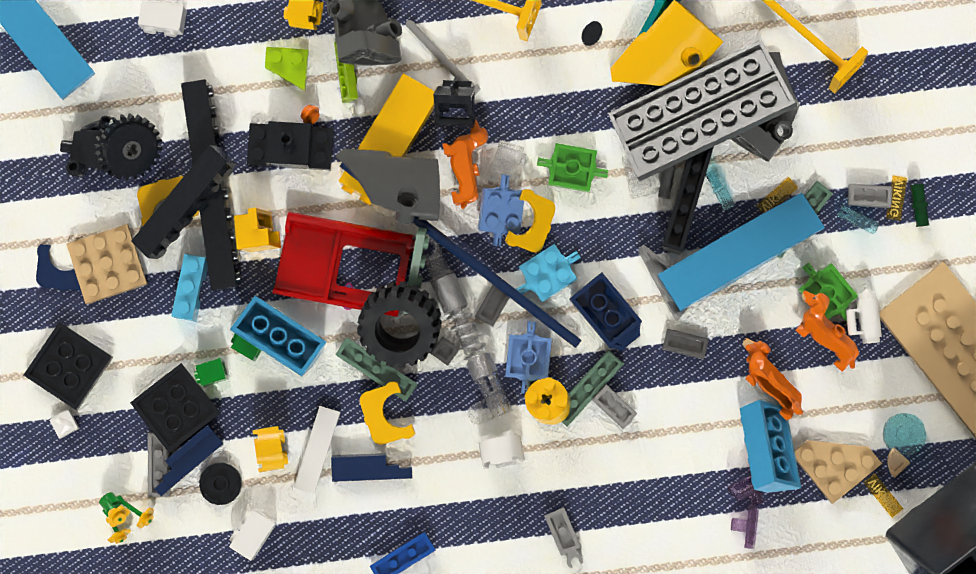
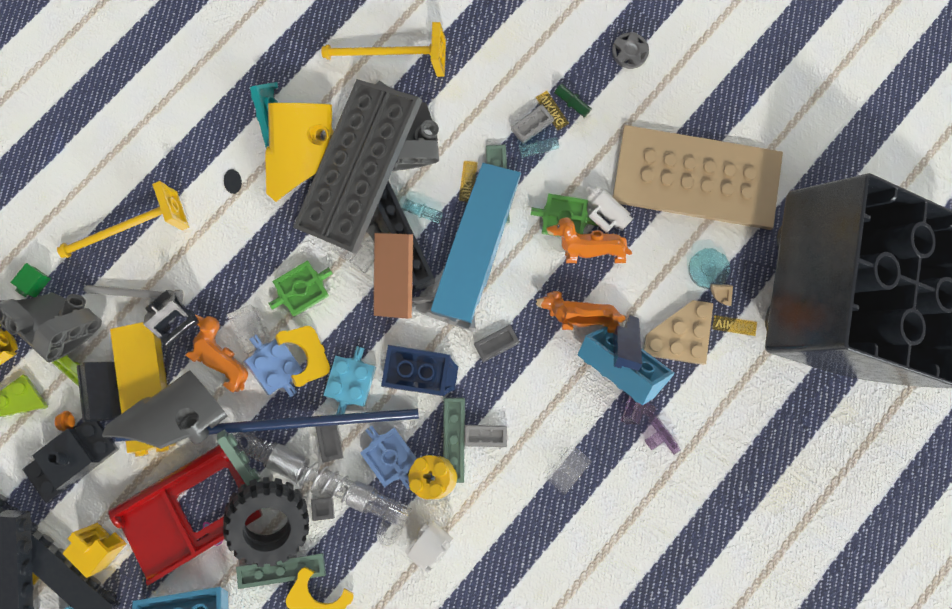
camera: 40 degrees left, 5 degrees down
(356, 115) = (98, 391): none -> black piece
(563, 534) = (533, 568): light grey plate -> none
(653, 221) = (393, 275): none -> nougat tile
(654, 486) = (567, 468): none -> clear brick
(785, 435) = (628, 345): none -> dark blue piece

